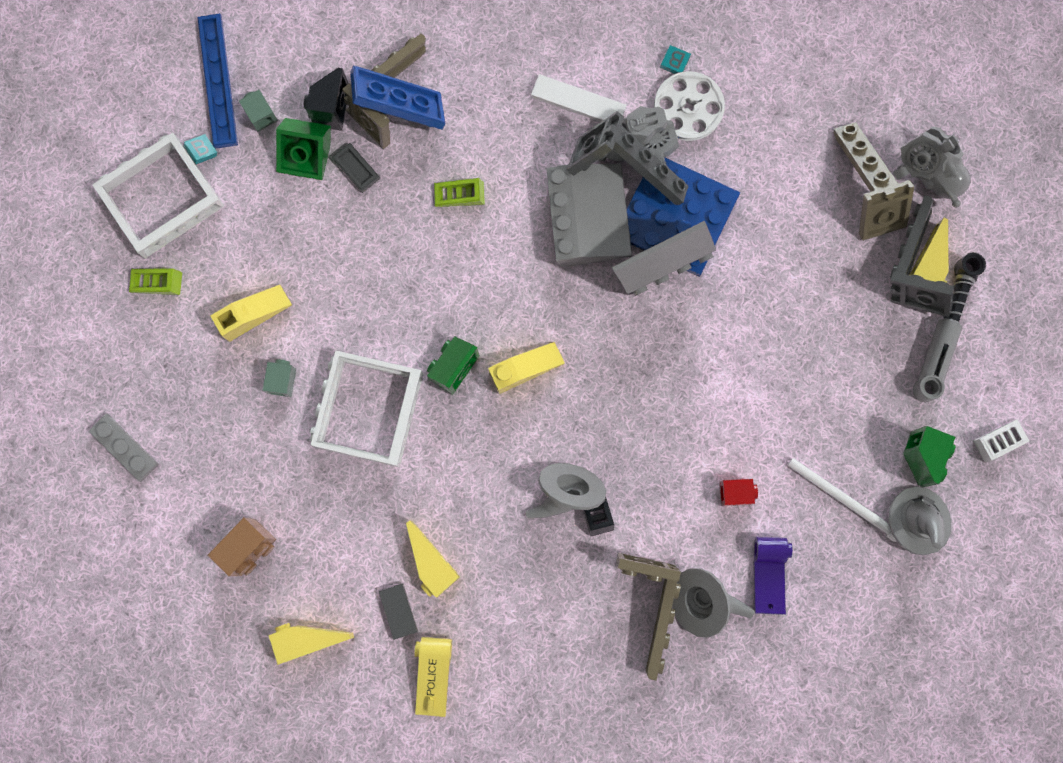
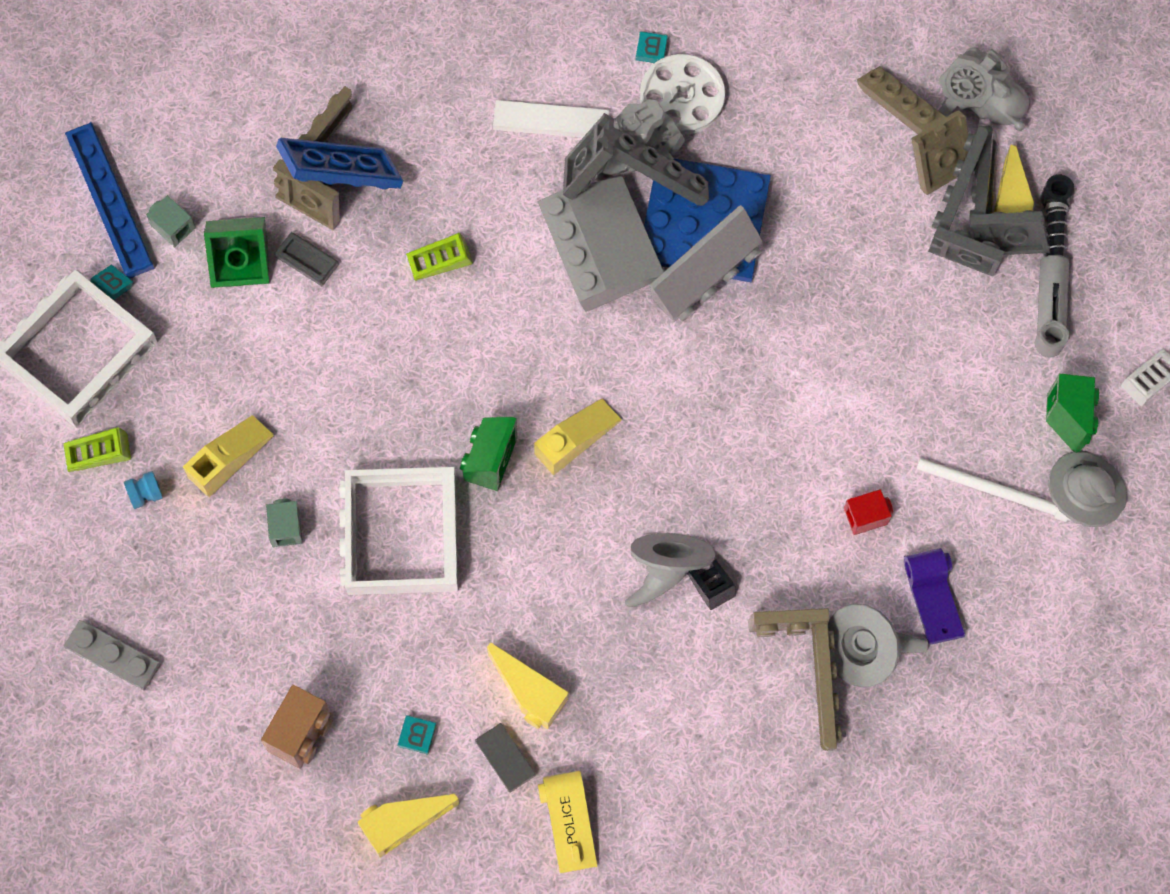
camera: 20 degrees left, 10 degrees down
(180, 323) = (144, 489): none -> dark azure wheel
(326, 100) = (254, 187): black slope -> none
(336, 574) = (416, 734): none -> teal tile
(876, 292) = (958, 245): none -> dark grey bracket

